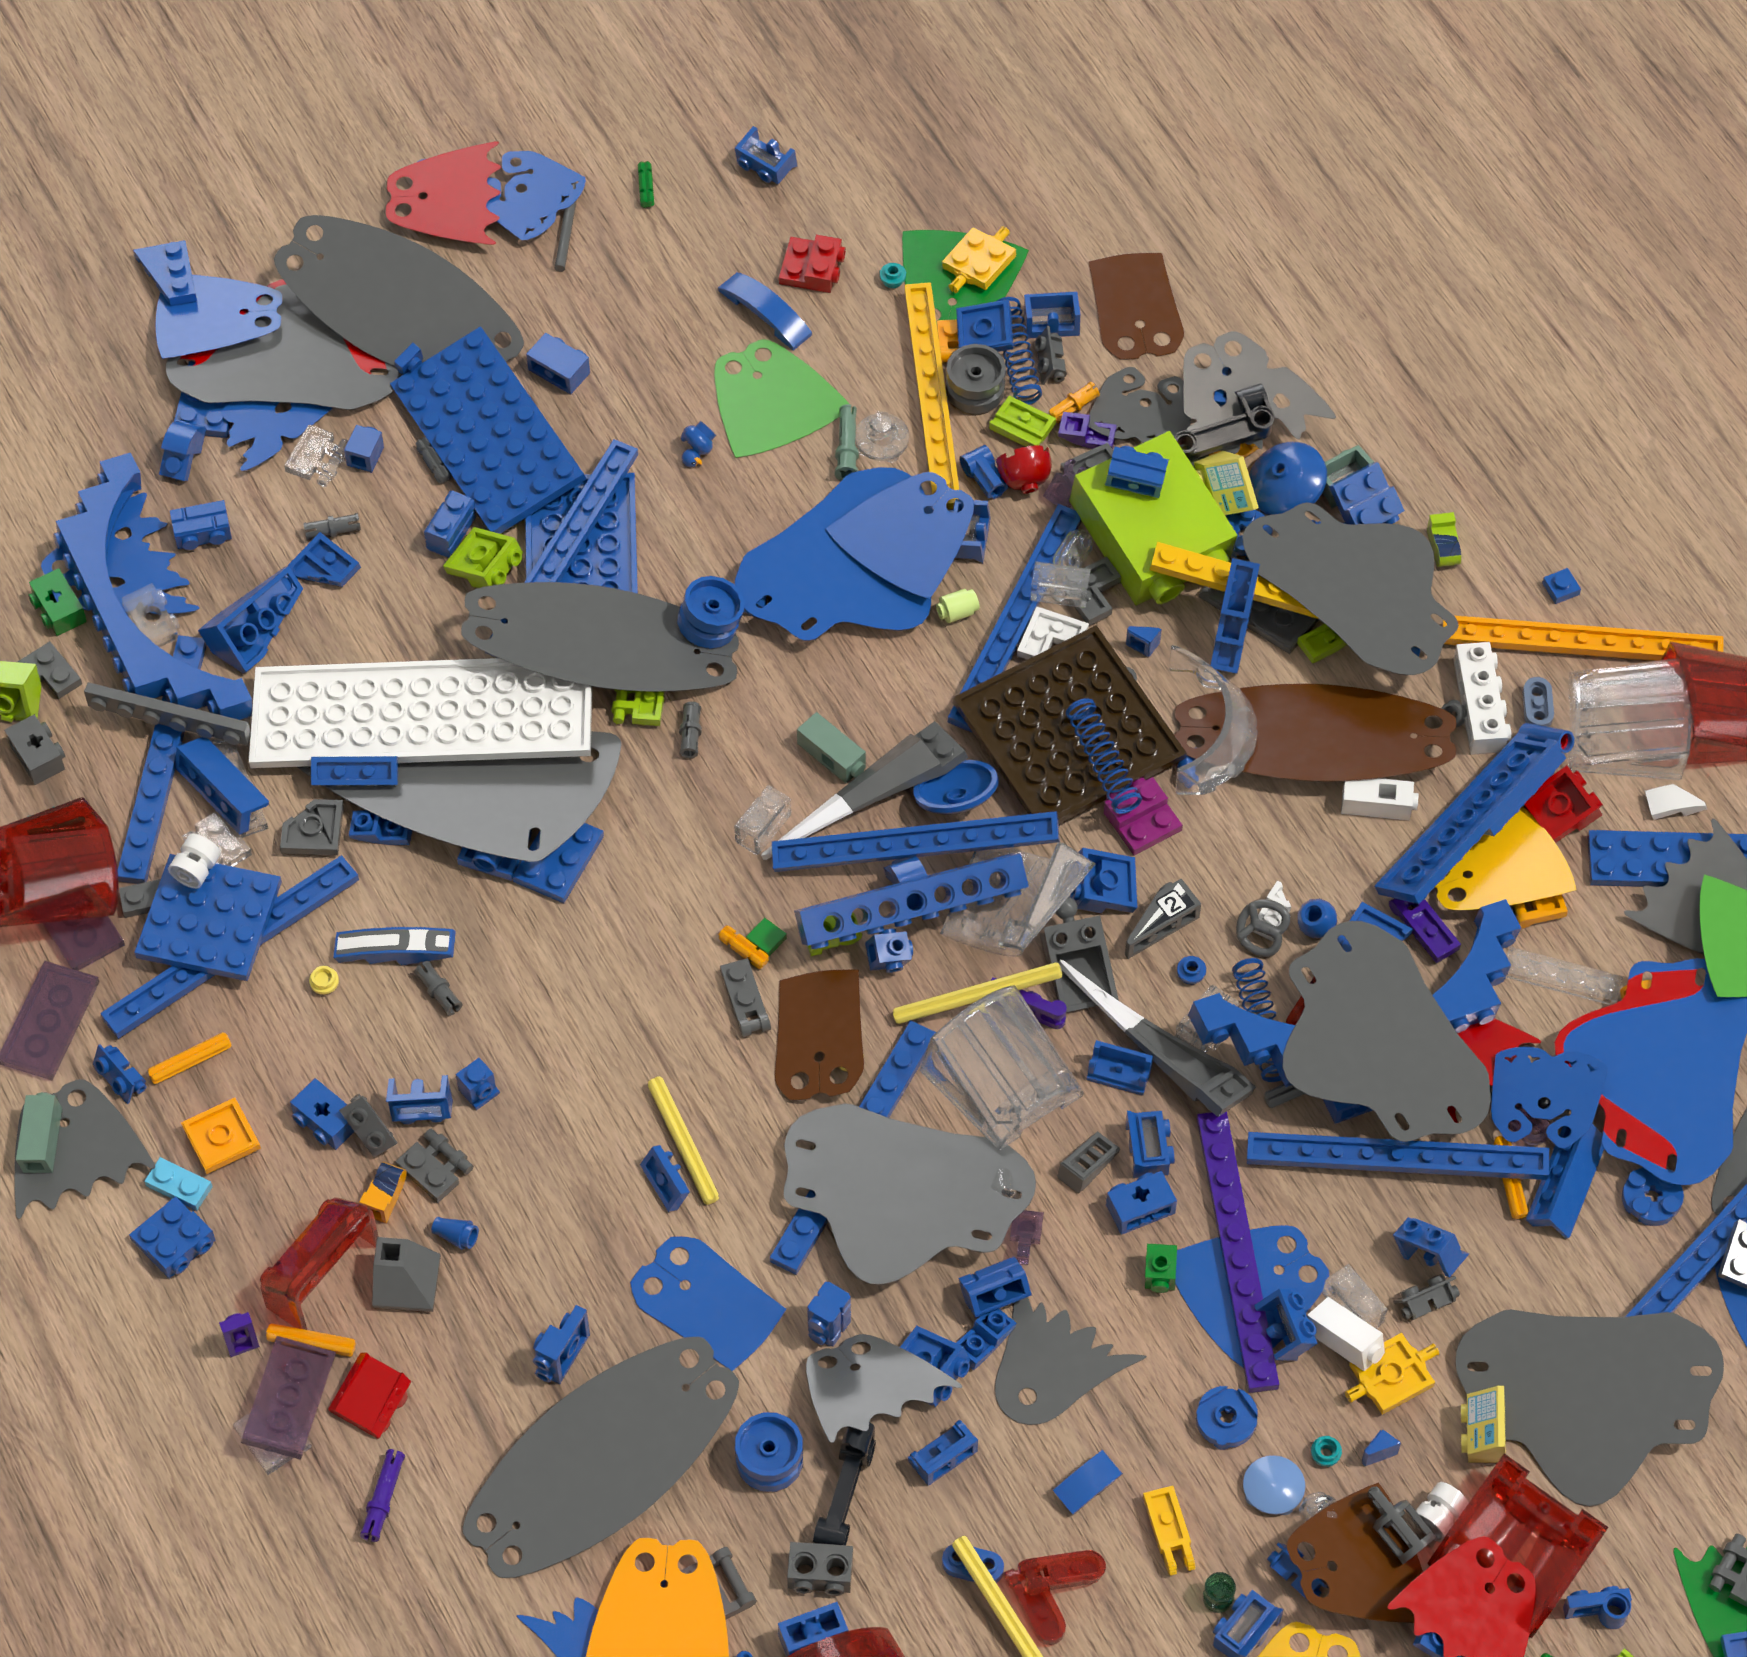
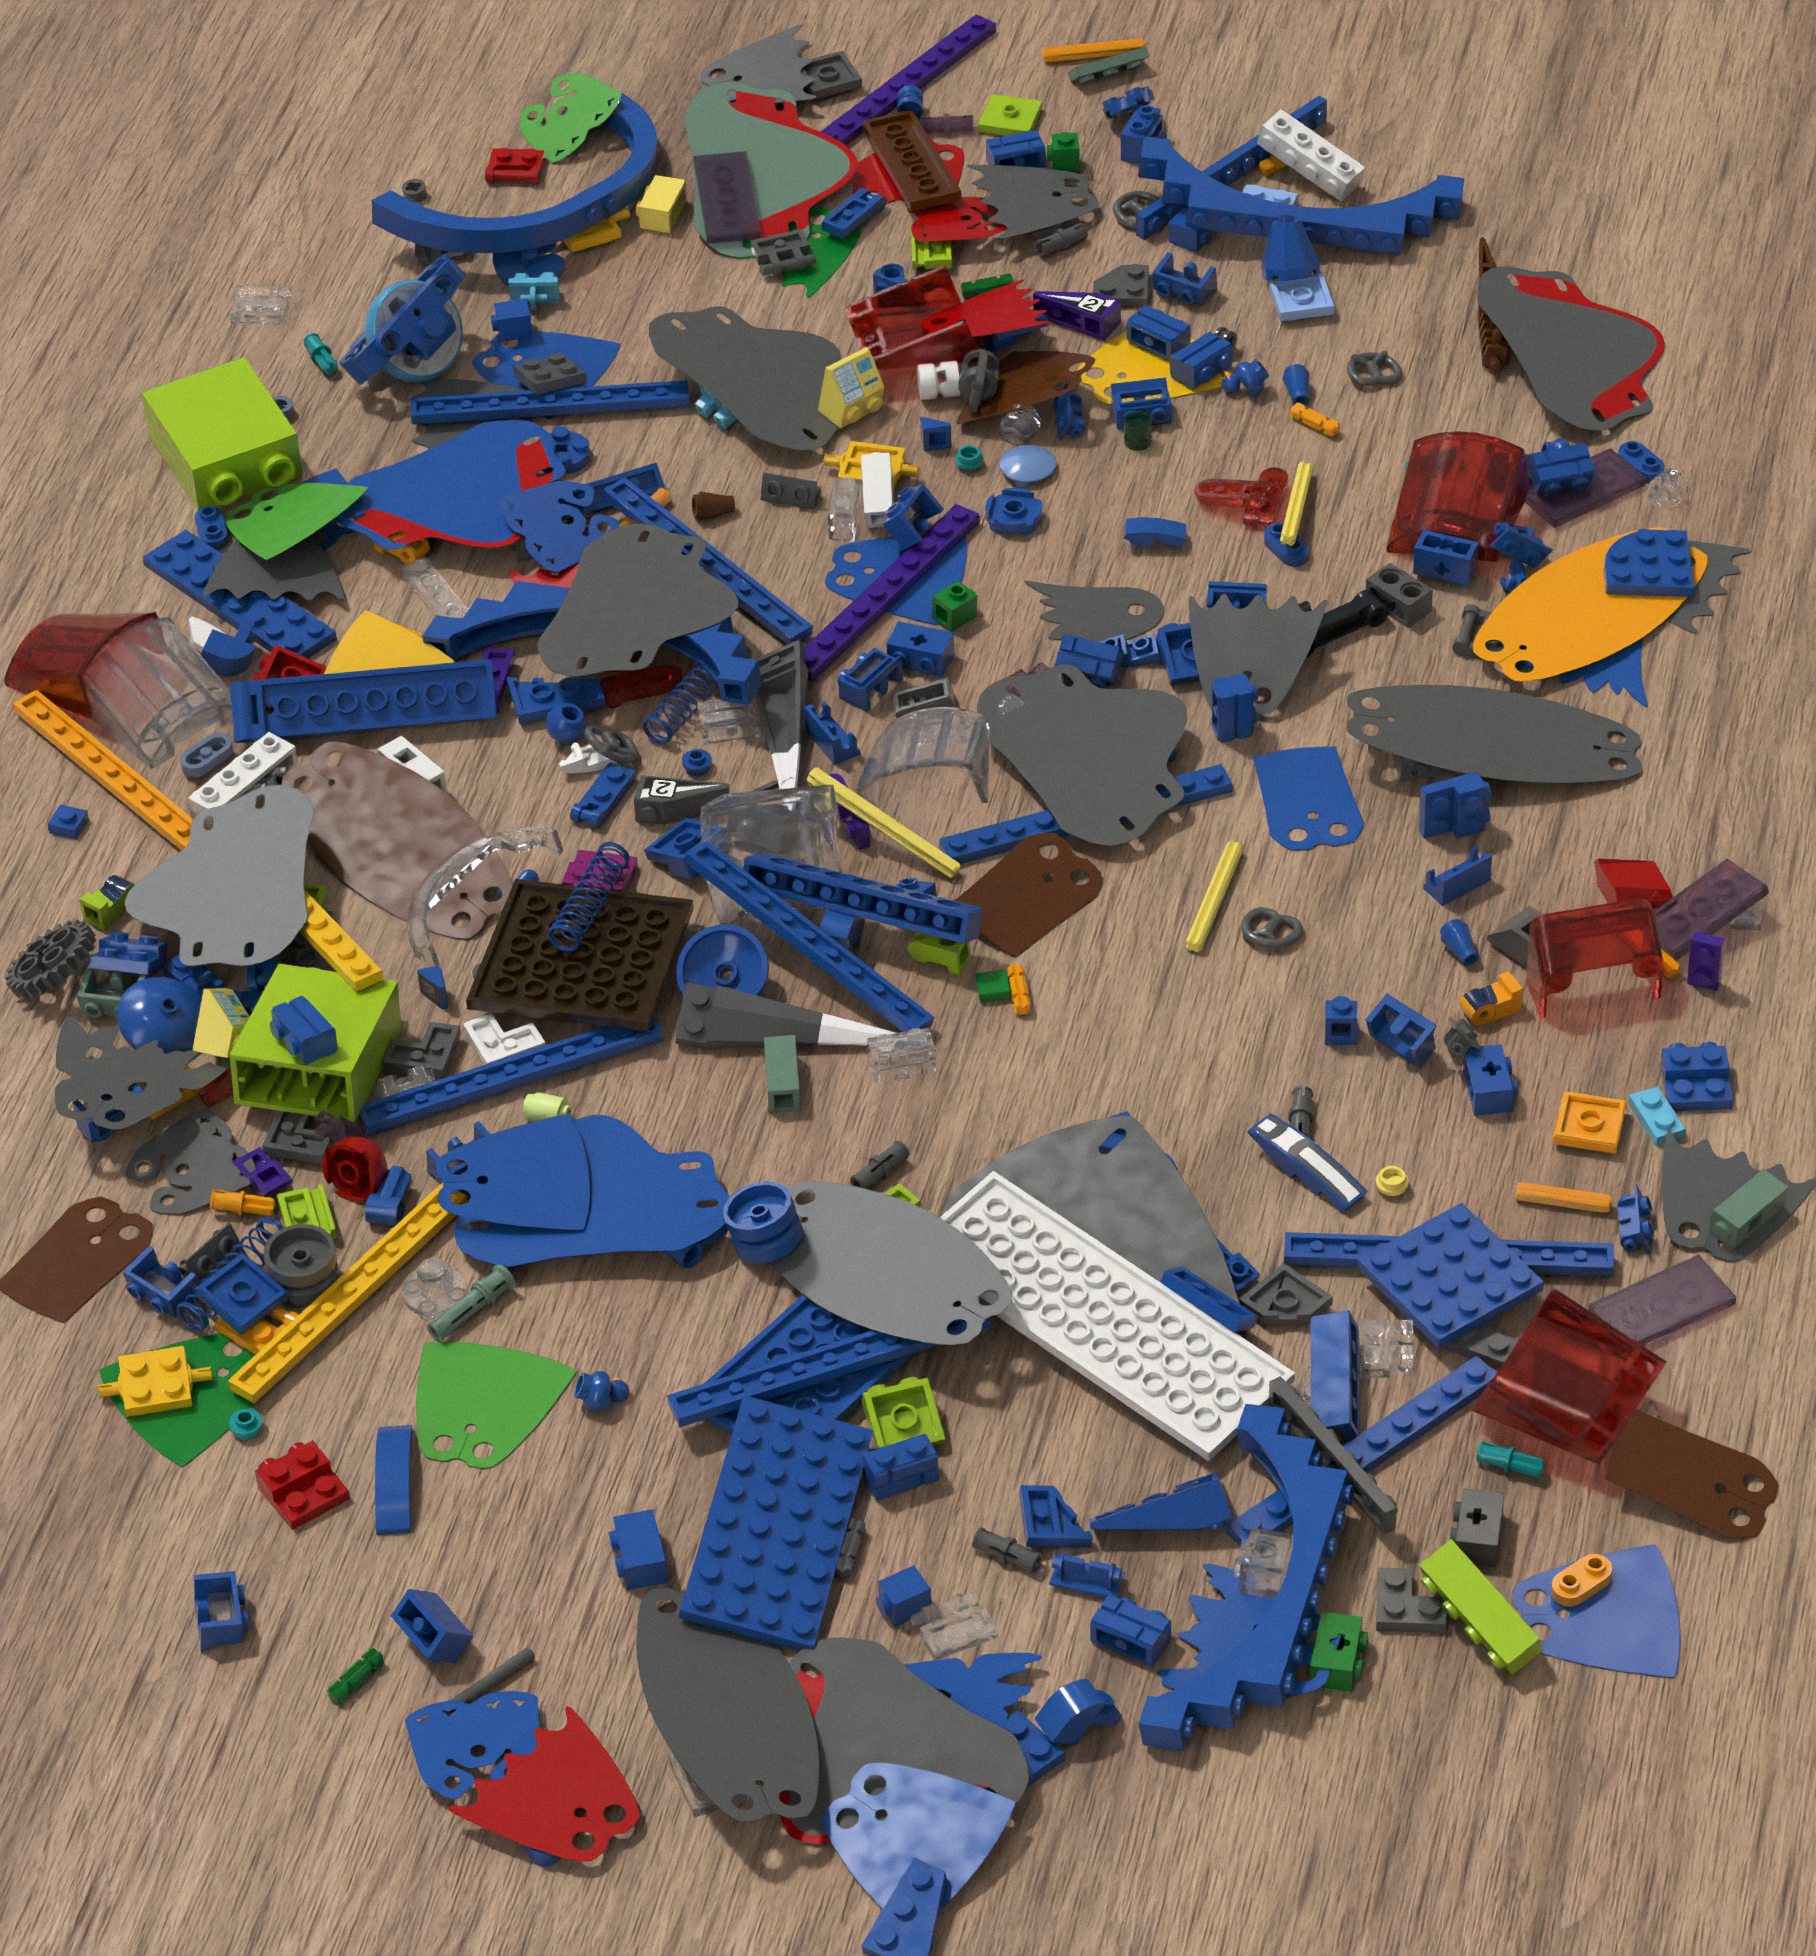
camera: 135 degrees left, 15 degrees down
(193, 862) = (1424, 1291): white wheel -> none
(265, 545) = (1090, 1578): none -> blue hinge
(378, 1507) = (1692, 814): dark purple pin -> none
(409, 359) = (776, 1641): blue plate -> none
(428, 1172) = (1439, 997): dark grey plate -> none
(511, 1296) = (1460, 878): none -> blue hinge
(613, 1141) = (1265, 936): none -> dark grey piece
(625, 228) = (431, 1626): none -> blue brick
(665, 1177) = (1257, 875): blue plate -> none
(745, 997) = (1057, 957): dark grey plate -> none
(769, 1451) = (1365, 661): blue wheel -> none
(1060, 584) = (454, 1046): clear brick -> none
(1169, 1527) = (1128, 481): yellow hinge -> none
(1222, 888) = (603, 795): none -> blue plate
(1232, 431) = (140, 1040): black piece -> none
(1235, 615) = (356, 917): blue slope -> none
(1410, 456) = (50, 959): none -> dark grey gear
(1438, 1243) = (756, 496): blue window -> none
(1469, 1225) = (710, 504): none -> reddish brown cone
(1632, 789) = (230, 654): none -> blue brick

